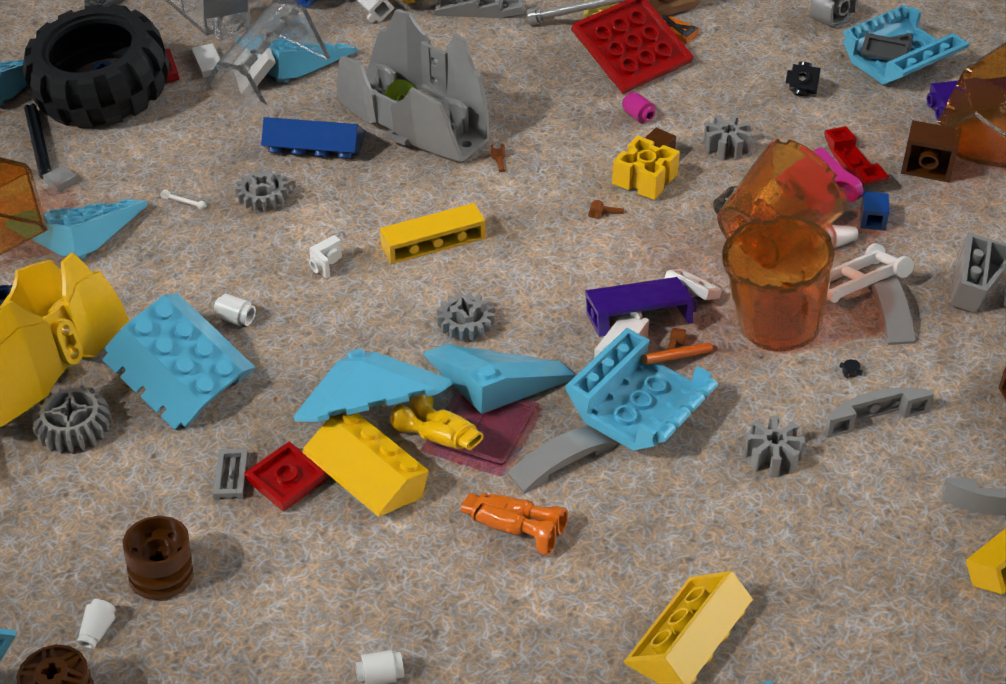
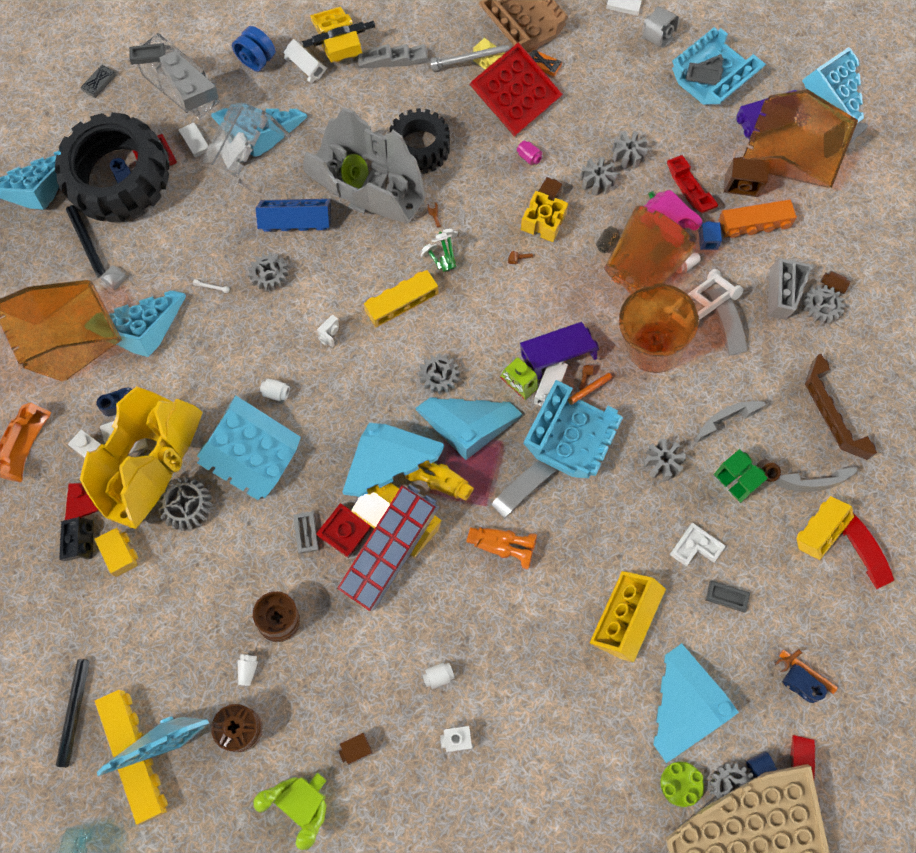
camera: 10 degrees left, 25 degrees up
(343, 489) = (388, 547): none -> sand blue brick
(508, 174) = (447, 261): none -> green plant
(519, 76) = (426, 122): none -> black tyre
(577, 328) = (519, 376): none -> lime torso
(695, 285) = (592, 321): white plate -> none
(774, 116) = (629, 149): none -> light grey gear
(805, 70) = (651, 114): black brick -> none
(810, 551) = (696, 540): none -> white tile
(851, 368) = (706, 381): black piece -> none
(851, 628) = (727, 596): none -> dark grey tile
(881, 461) = (740, 465): none -> green piece
(935, 467) = (771, 469): none -> reddish brown brick
(944, 199) = (757, 218): none -> orange brick

